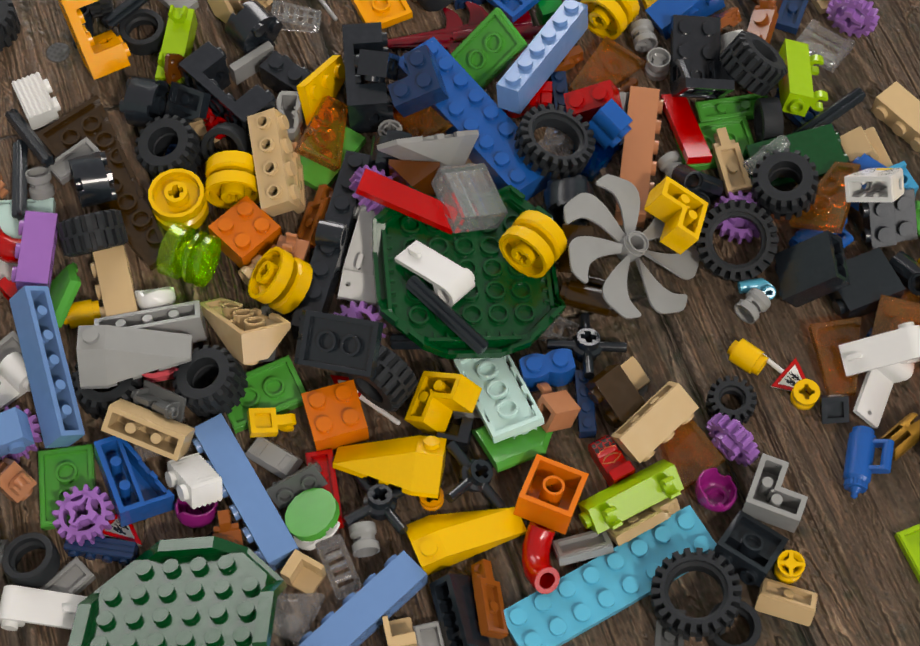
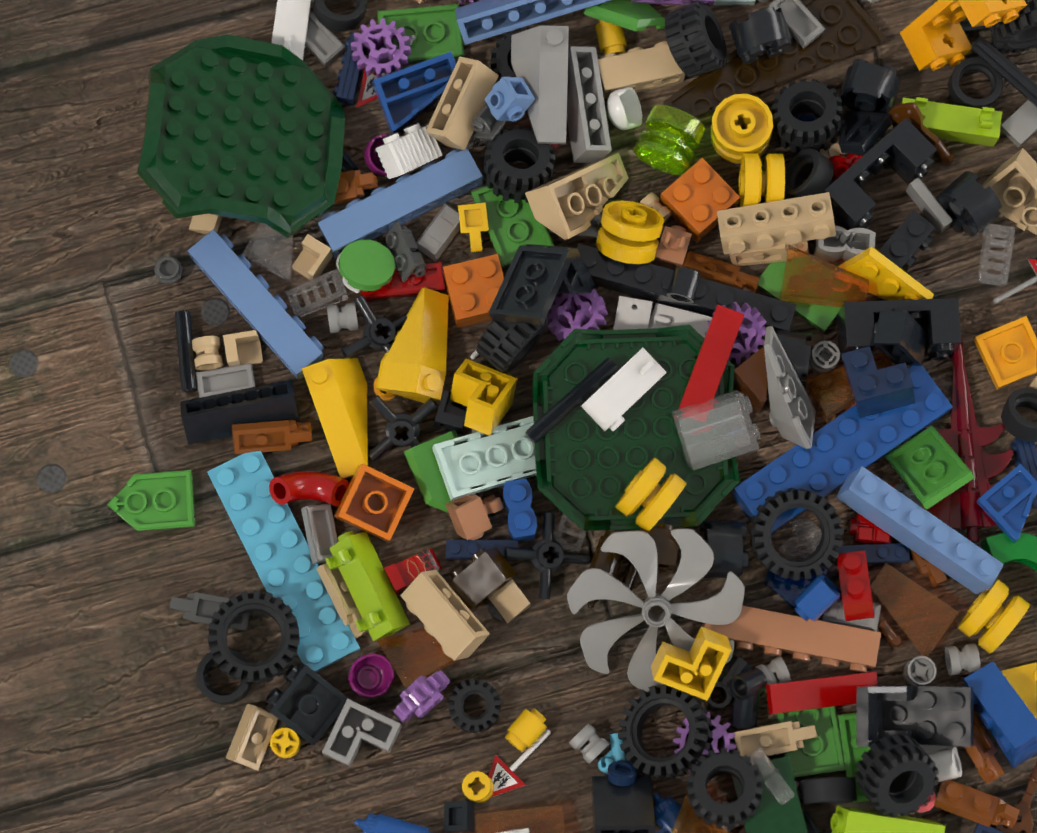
camera: 90 degrees right, 15 degrees up
(149, 380) = (509, 99): none -> medium blue brick
(777, 274) = (622, 773): none -> dark blue tile

